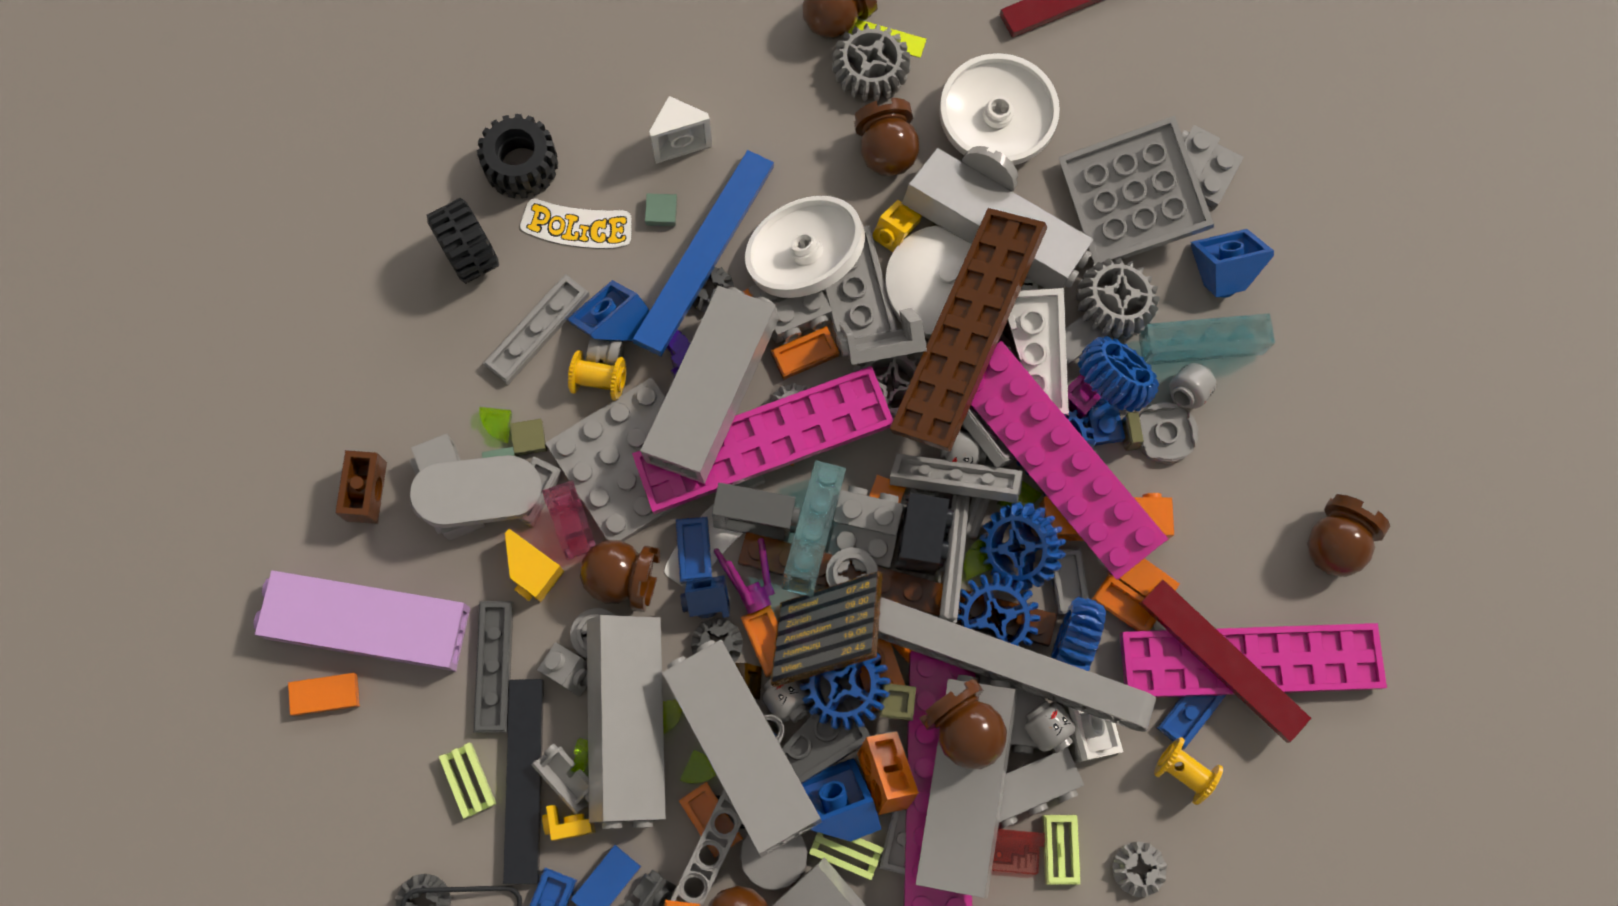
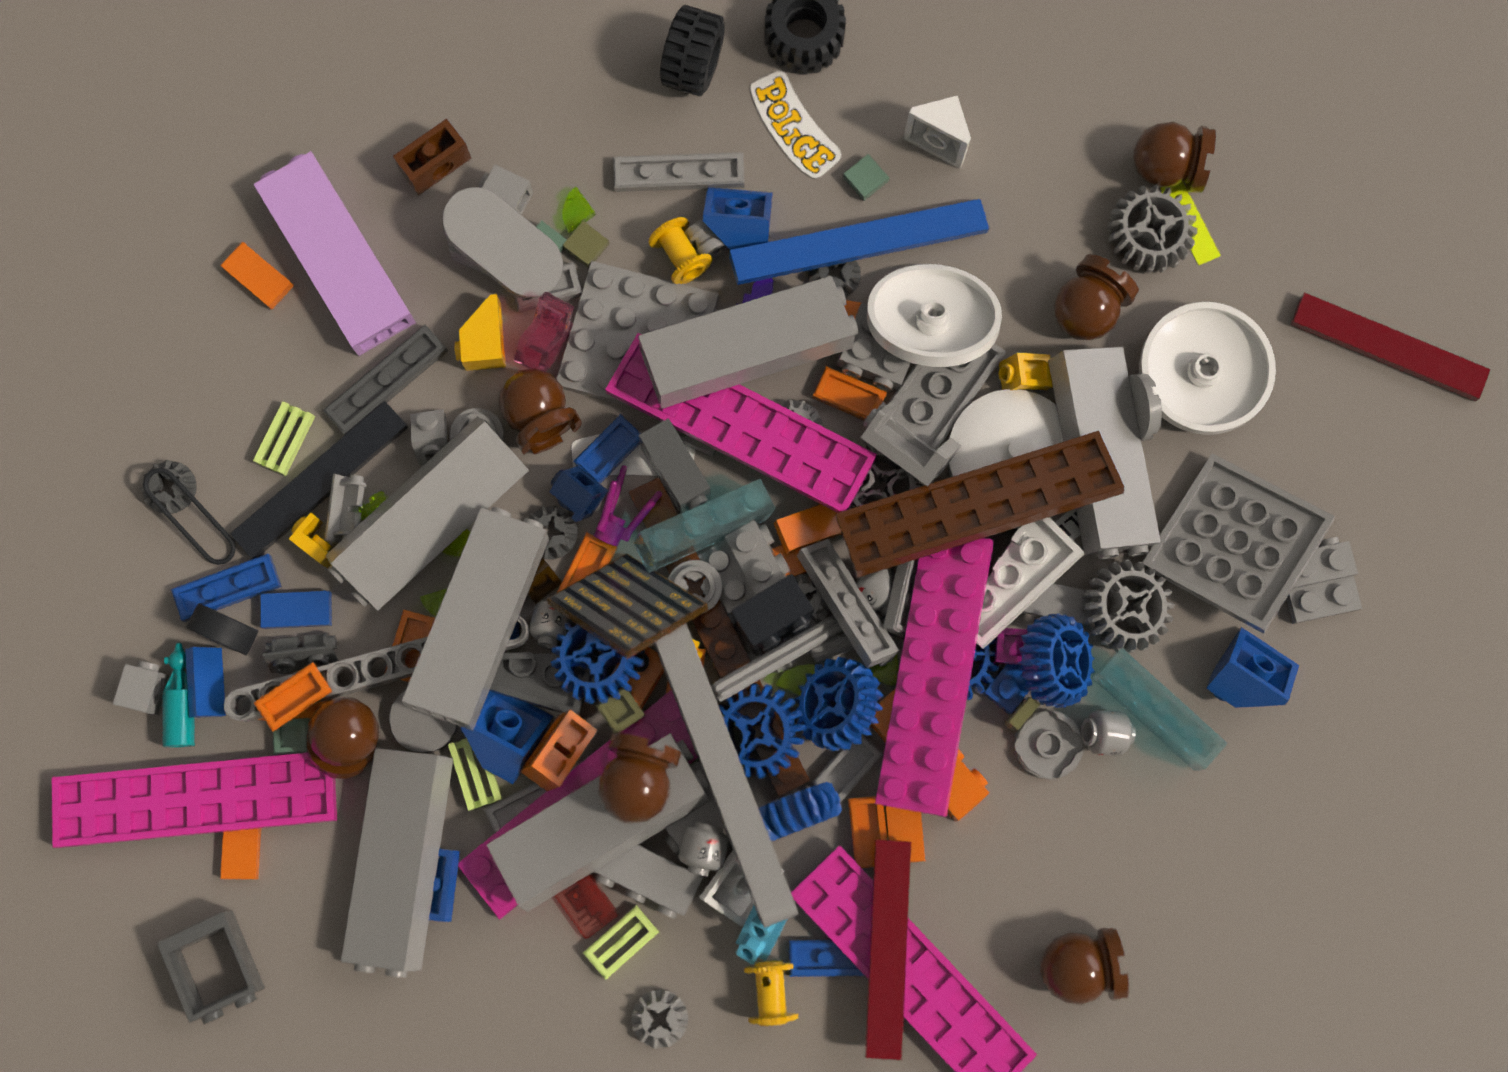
camera: 50 degrees right, 5 degrees up
(876, 459) = (807, 528): none -> orange tile
(1140, 747) = (756, 940): none -> medium azure hips

